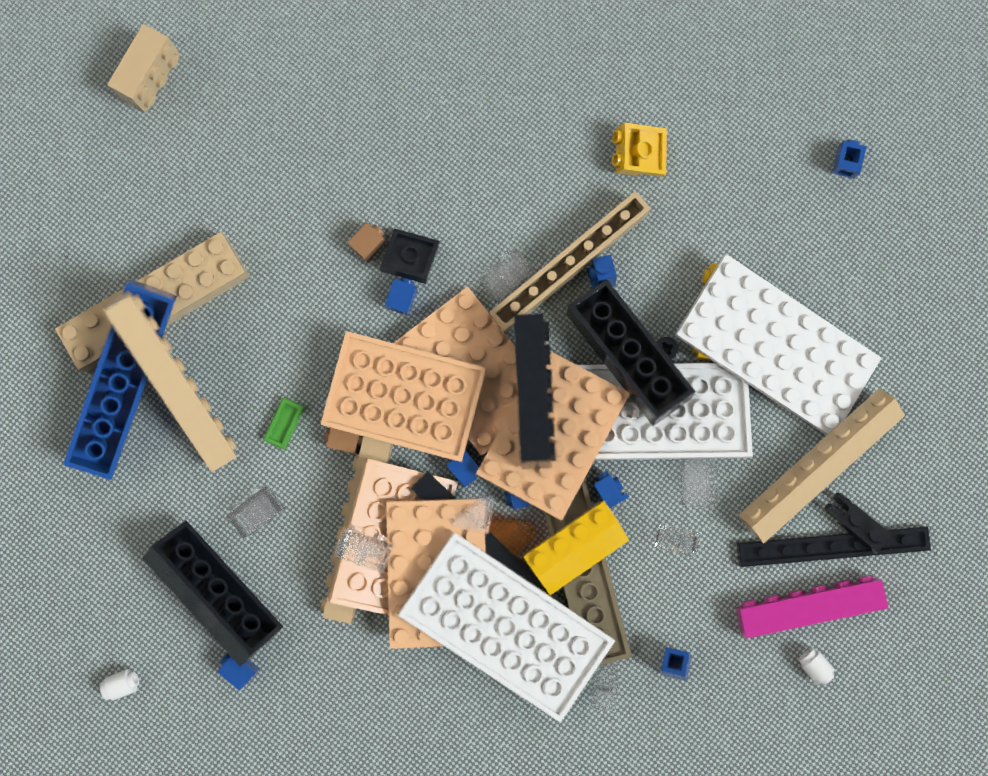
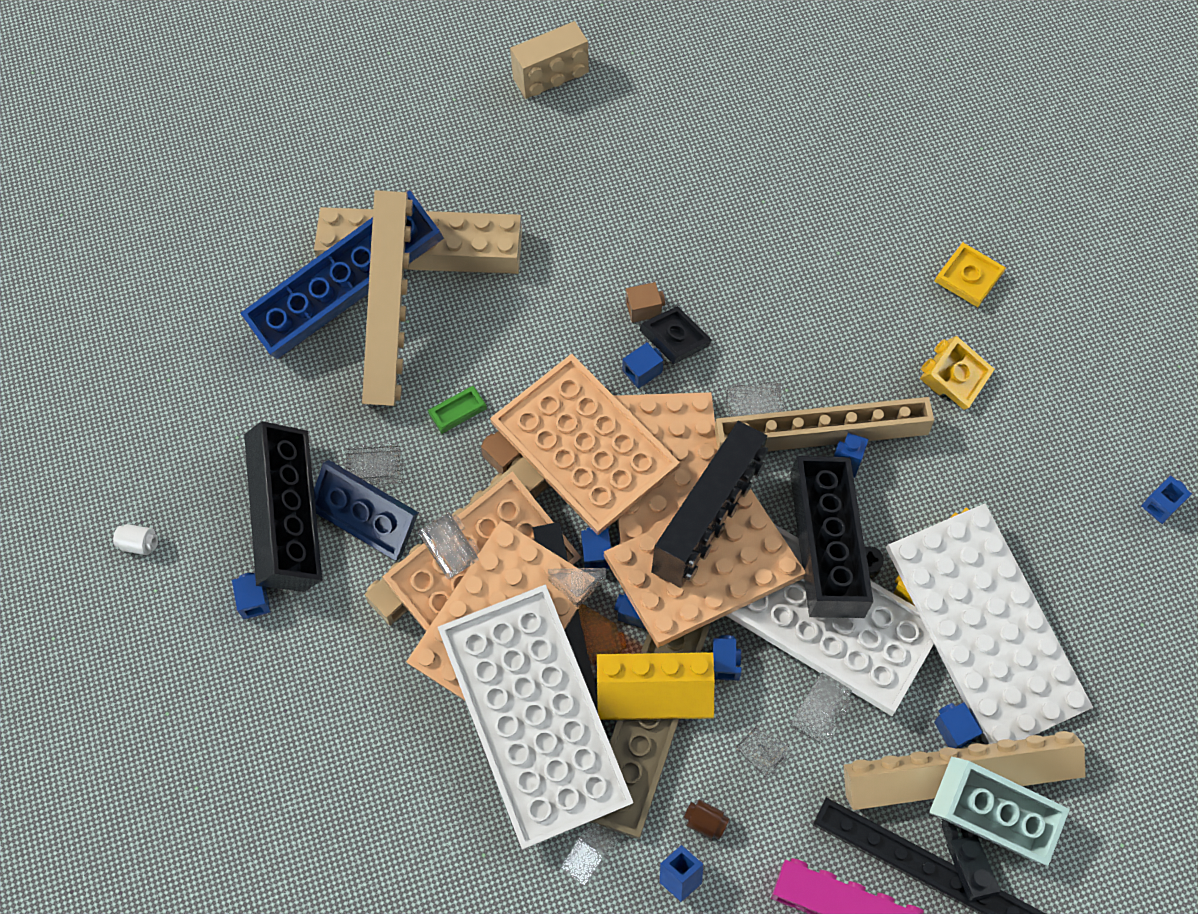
camera: 35 degrees right, 20 degrees down
(273, 554) = (363, 510): none -> dark blue plate
(601, 54) = (970, 274): none -> yellow plate
(668, 613) = (706, 819): none -> reddish brown brick
(798, 434) = (957, 725): none -> blue brick
(863, 483) = (999, 810): none -> light aqua brick

